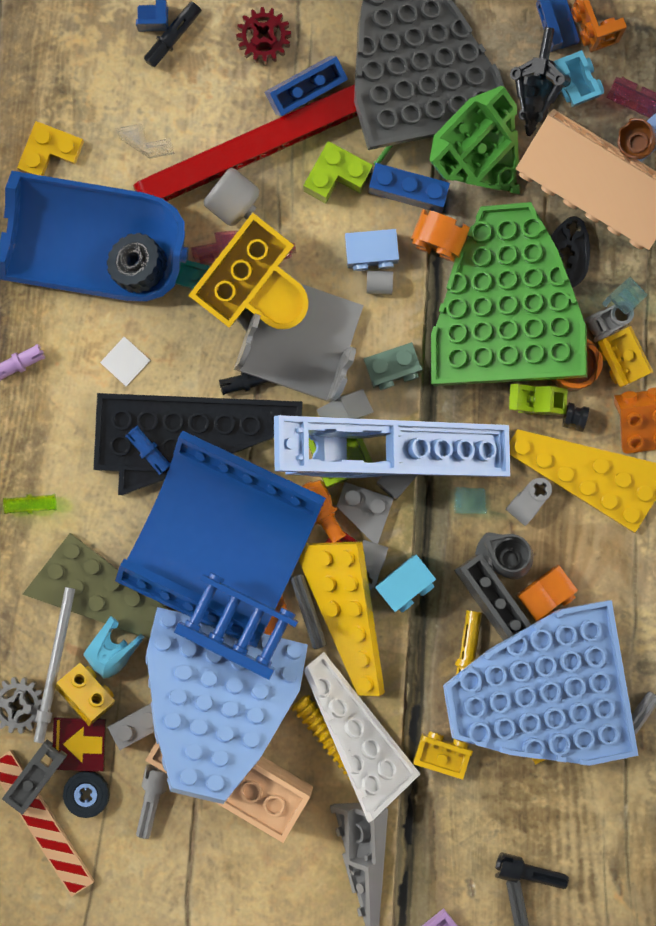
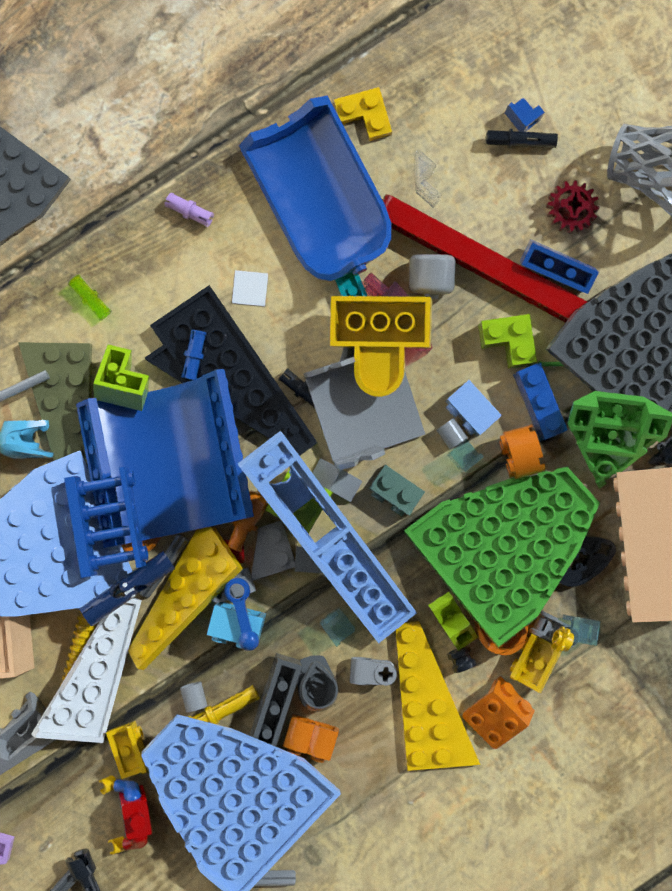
camera: 50 degrees right, 0 degrees up
(125, 532) = (117, 383): none -> lime brick
(127, 253) = (328, 240): black wheel -> none
(306, 639) = (137, 581): none -> dark blue piece
(407, 286) = (464, 456): none -> clear light blue panel
(425, 579) = (248, 639): none -> blue piece
(438, 667) = (193, 696): none -> light grey beam
(499, 789) = (134, 813): none -> red torso
(621, 319) = (562, 639): none -> yellow plate

